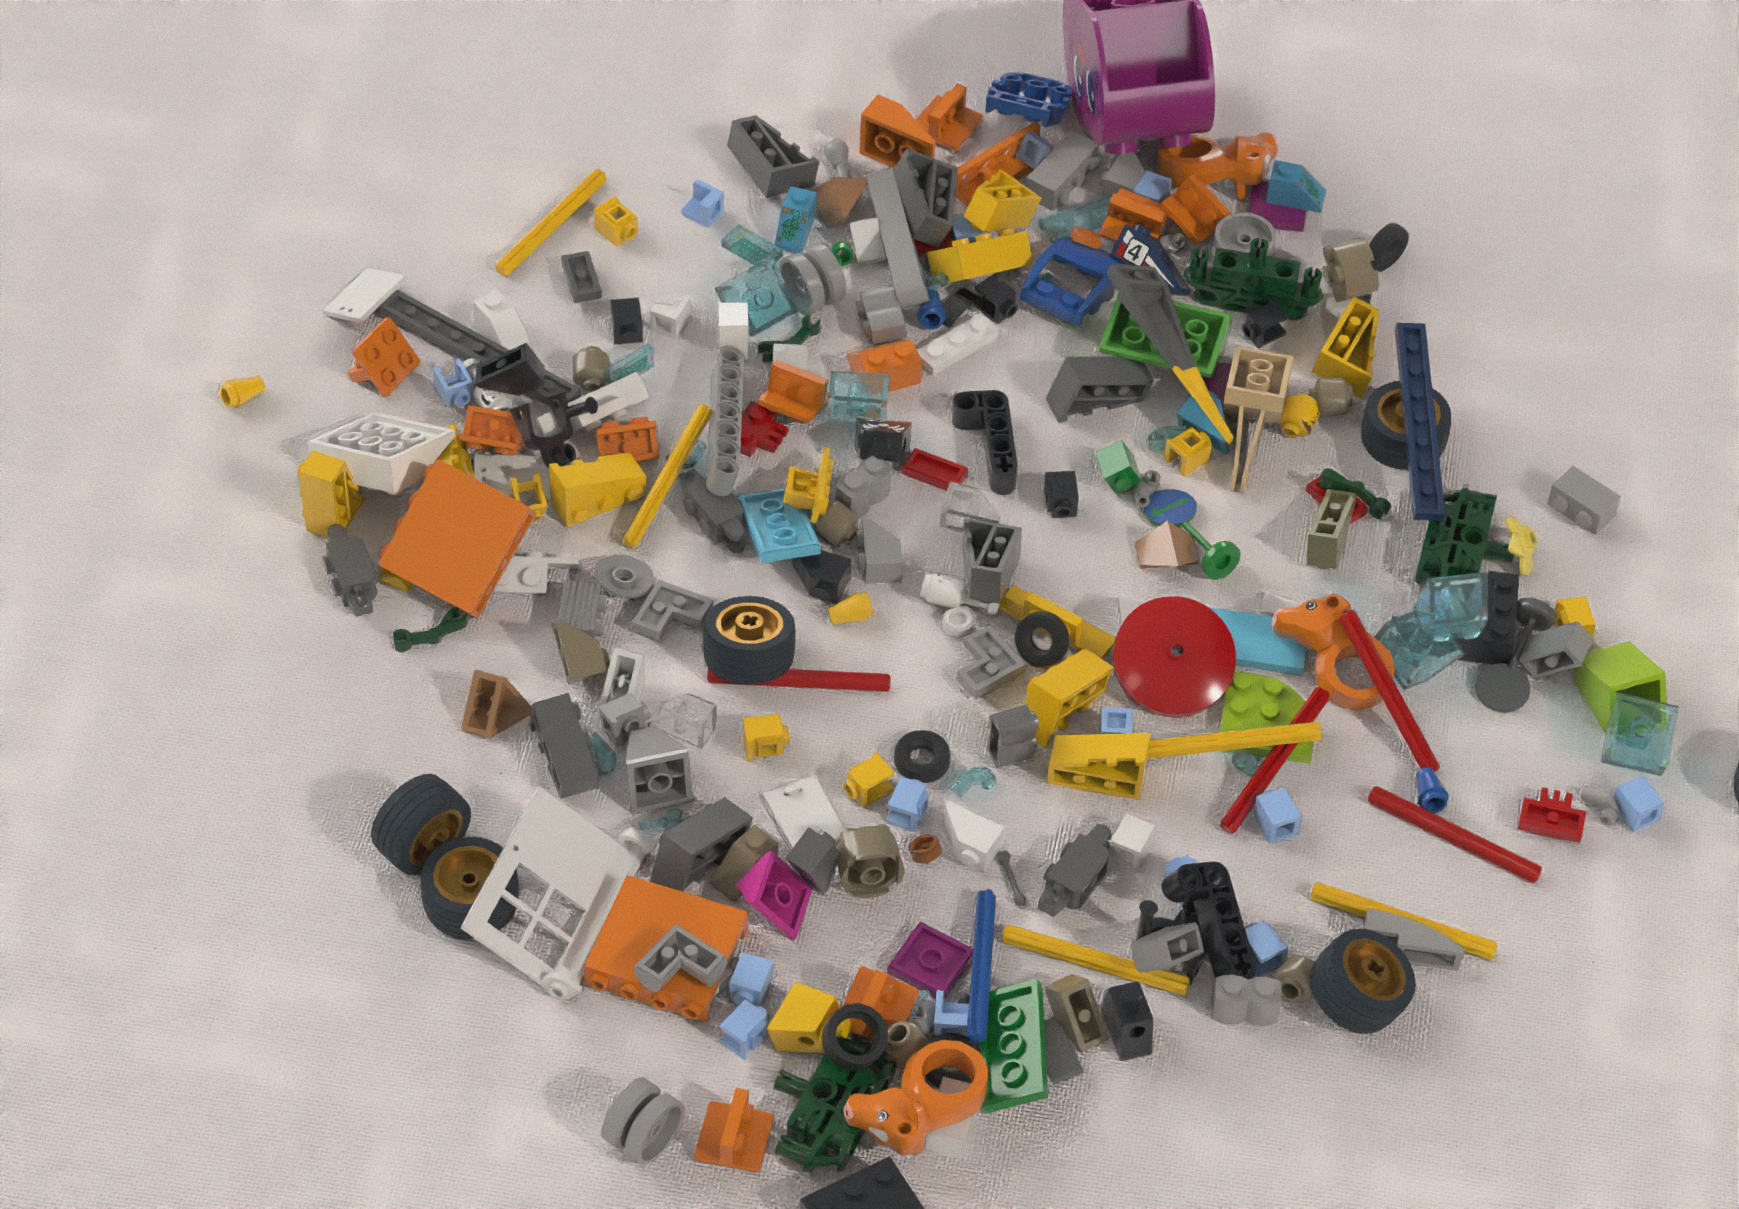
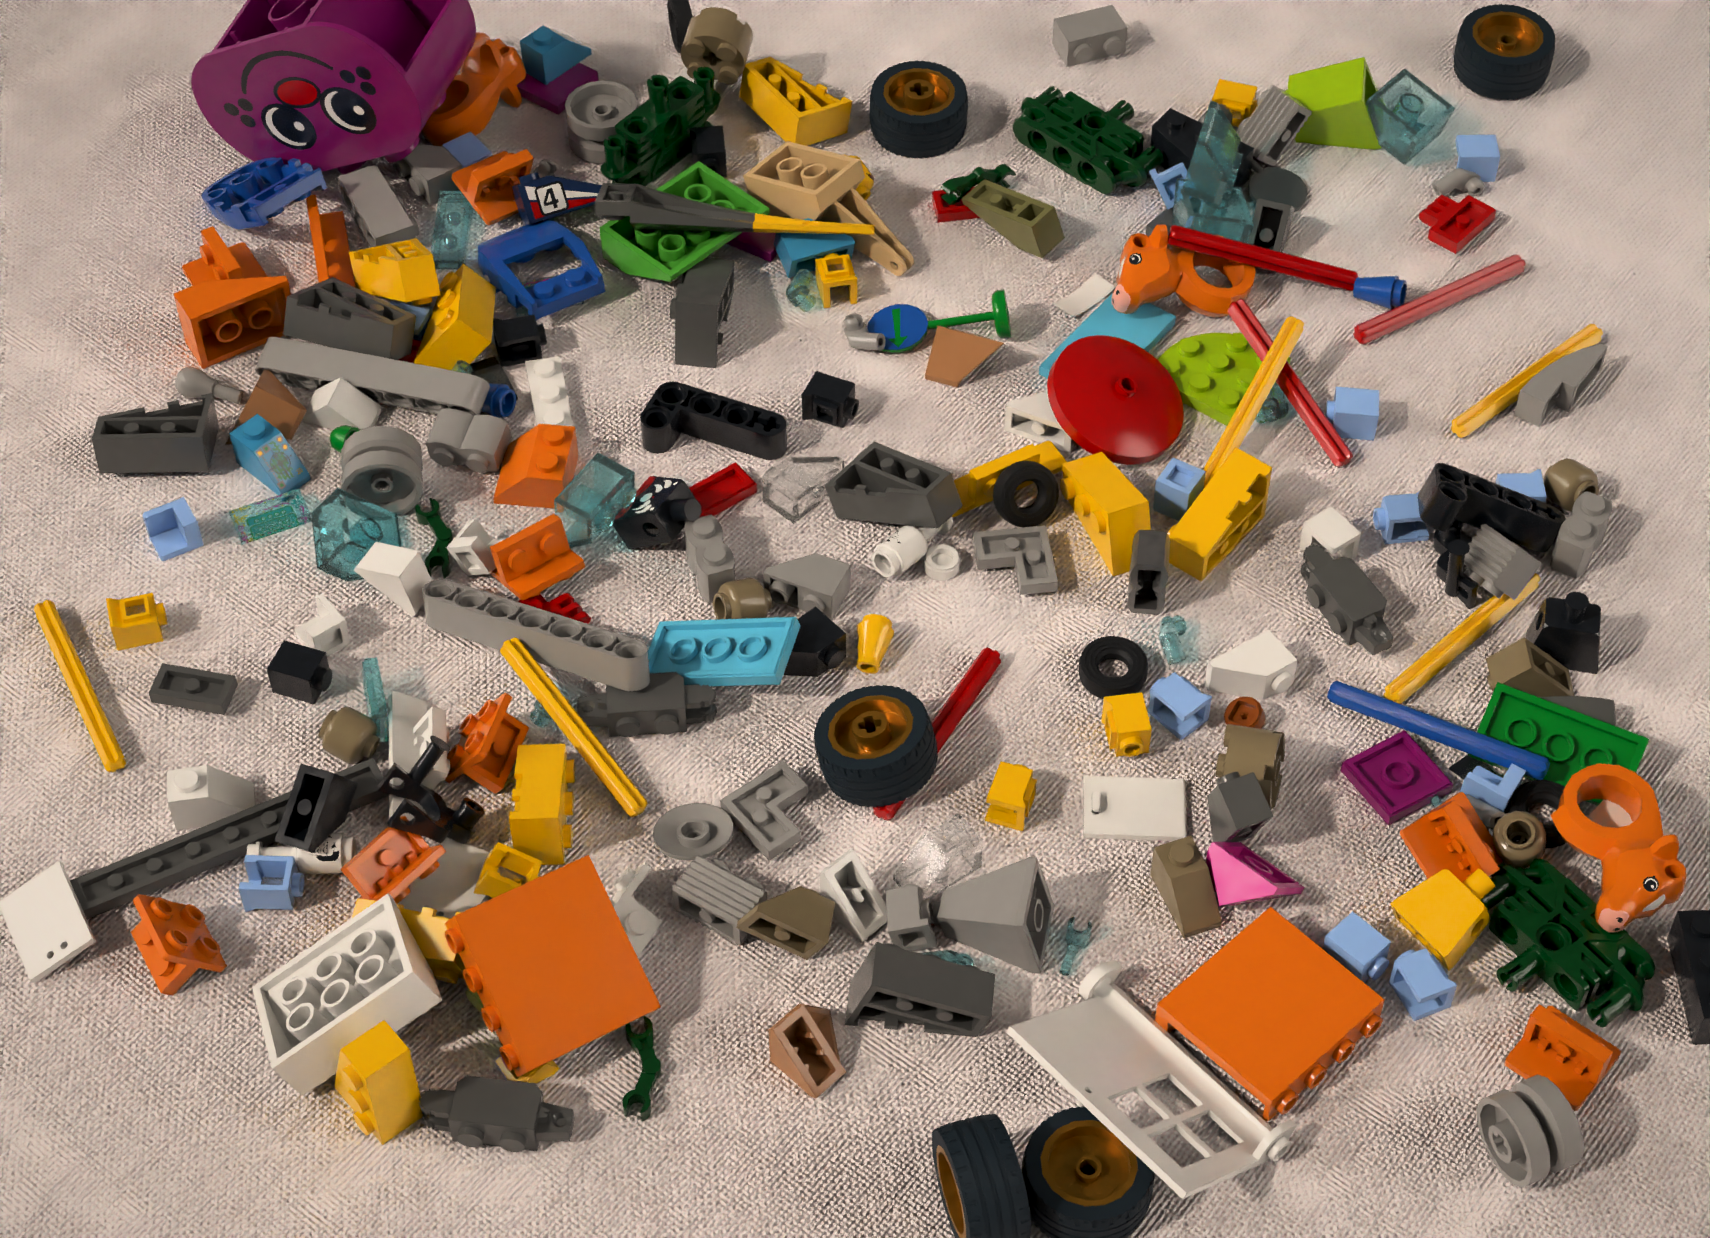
camera: 60 degrees left, 0 degrees up
(239, 391) = (103, 1126): yellow cone -> none
(679, 951) = (1316, 992): light grey brick -> none
(698, 843) = (1144, 919): dark grey wedge -> none
(810, 489) = (692, 595): yellow bracket -> none
(872, 1019) = (1529, 854): black tyre -> none
(1004, 859) = (1348, 666): dark grey hinge -> none
(1033, 149) = (341, 217): sand blue tile -> none
(1085, 237) = (488, 233): orange tile -> none
(1118, 466) = (827, 338): brick -> none
(1195, 209) = (528, 127): orange bracket -> none
(1332, 395) = (844, 138): dark tan head -> none
(1362, 981) = (1614, 430): black wheel -> none
(1419, 422) = (947, 84): dark blue plate -> none
(1440, 693) = (1271, 225): none -> dark grey slope
(1522, 543) = (1113, 93): light yellow plate -> none

